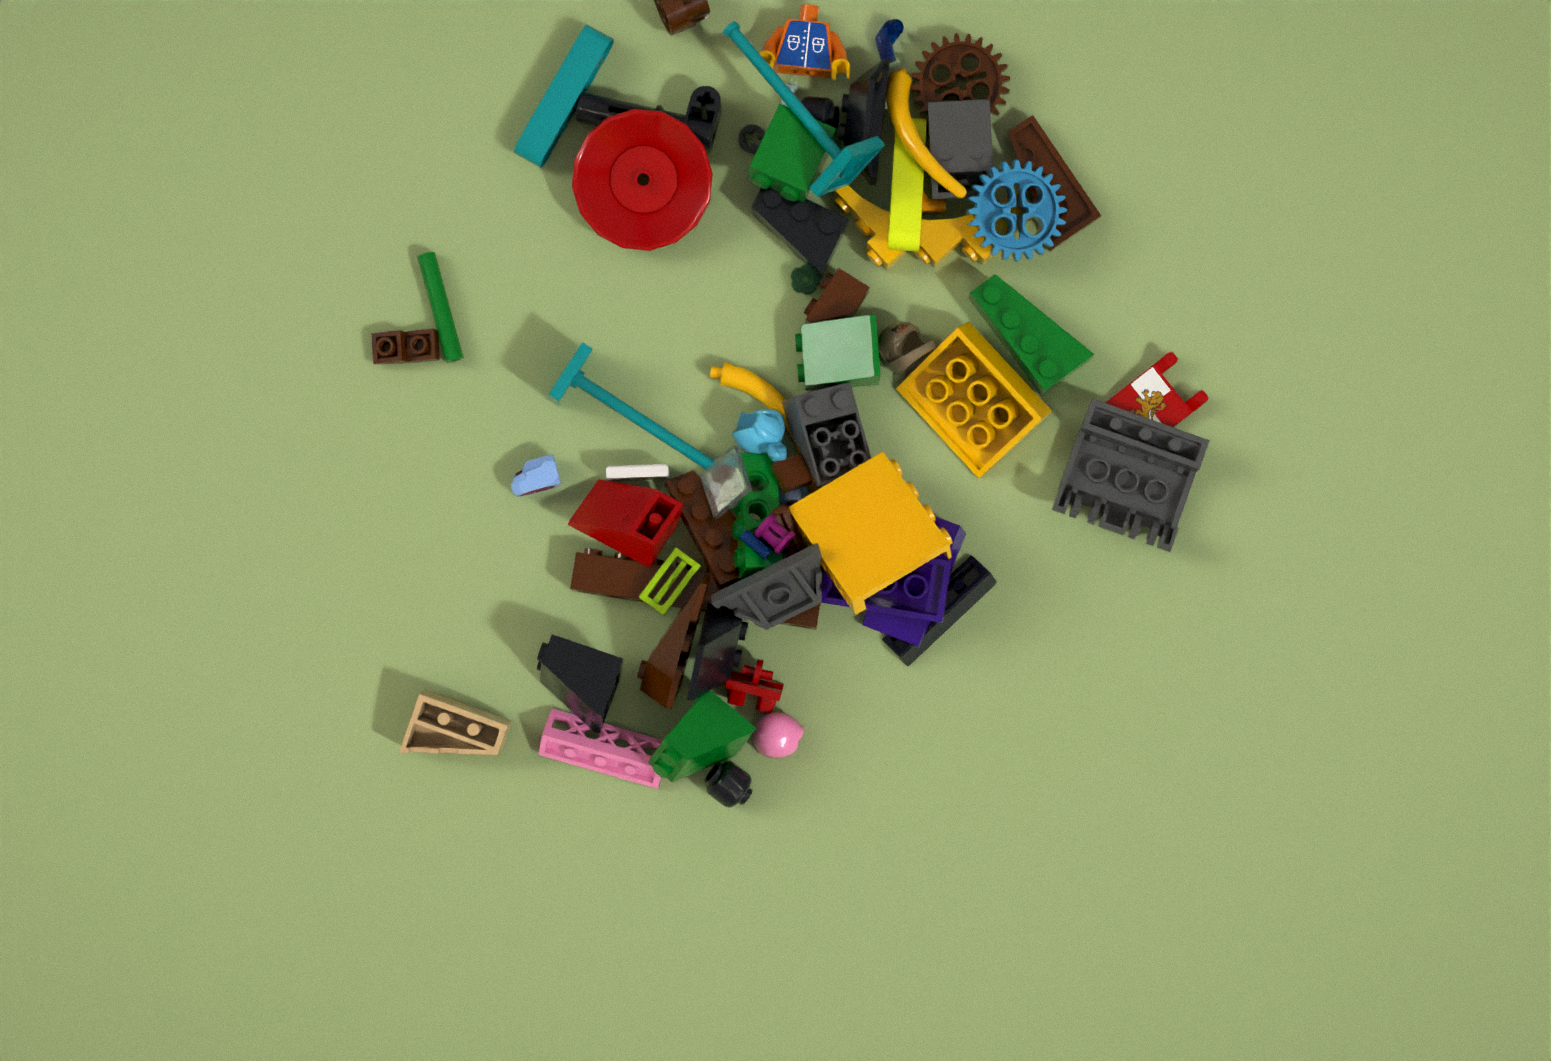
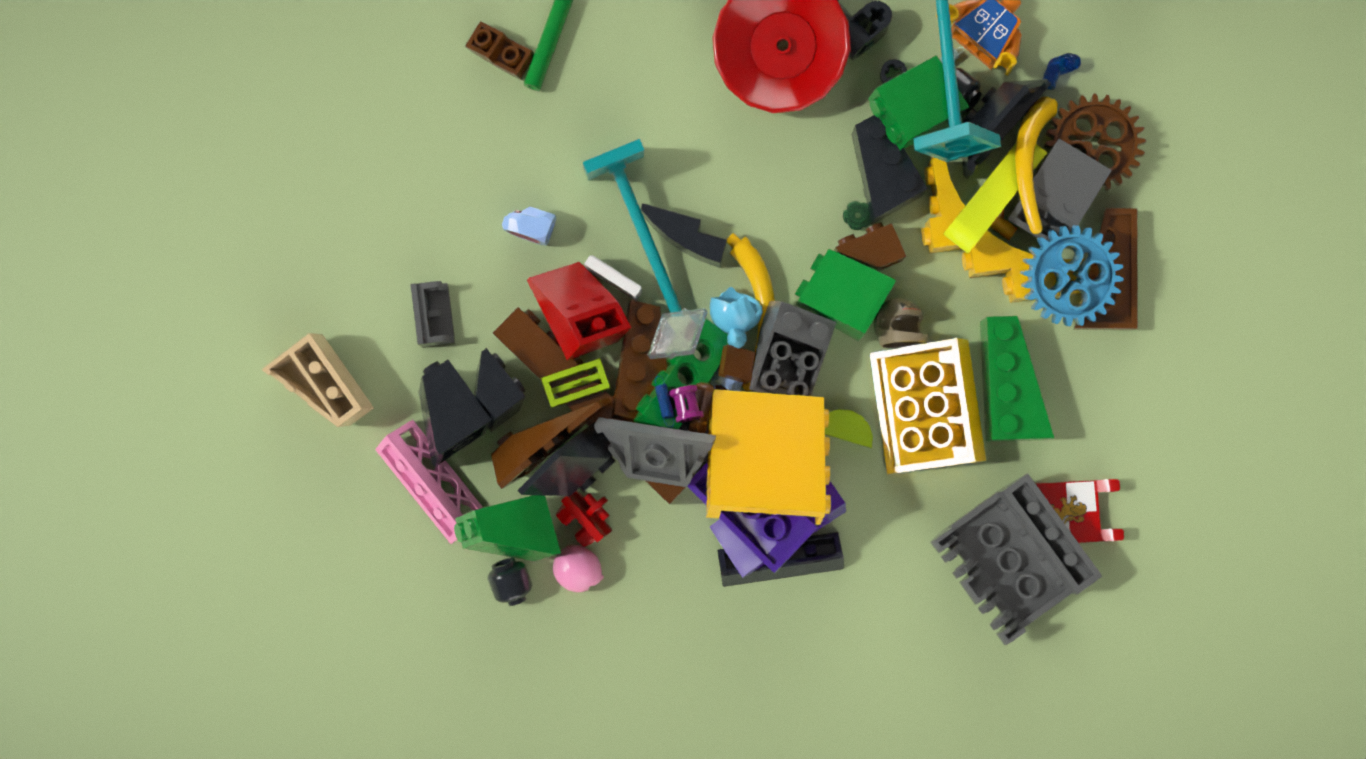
camera: 35 degrees right, 0 degrees up
(507, 608) = (432, 314): none -> dark grey hinge
(606, 630) = (496, 390): none -> black slope
(672, 396) = (684, 234): none -> black slope
(921, 461) = (849, 427): none -> lime tile

